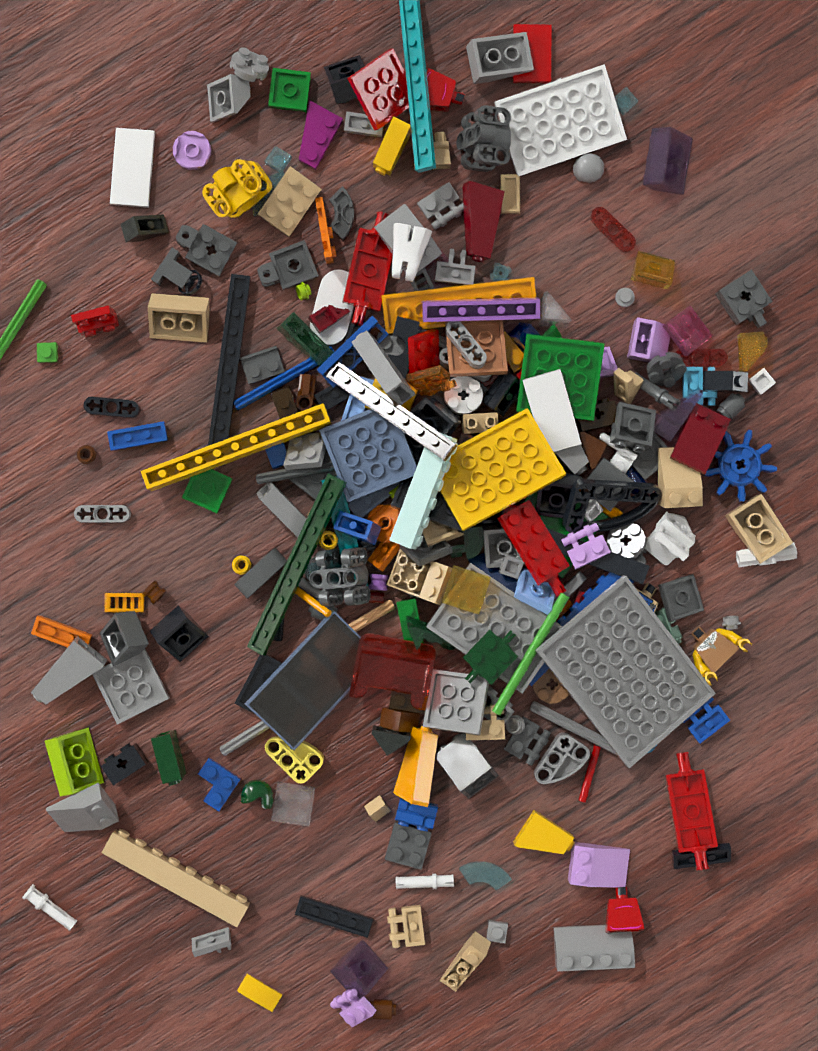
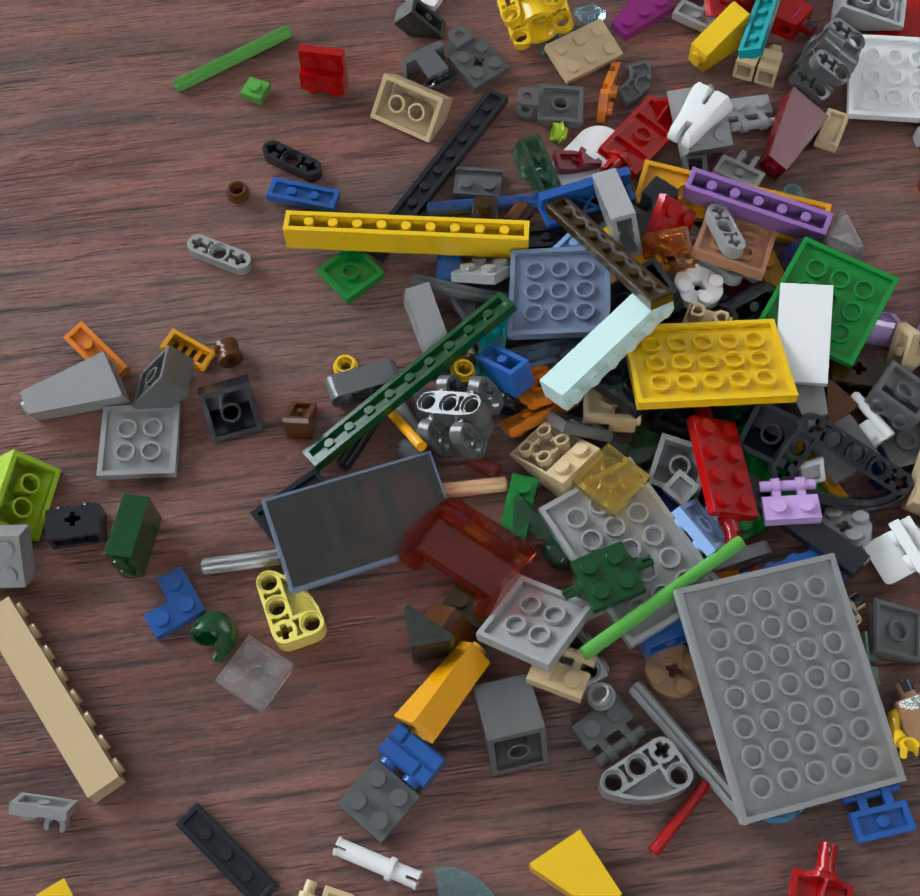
camera: 30 degrees right, 25 degrees down
(231, 618) = (300, 420): none -> reddish brown slope
(377, 808) = (362, 731): tan slope -> none
(378, 582) = (500, 449): medium lavender wheel -> none

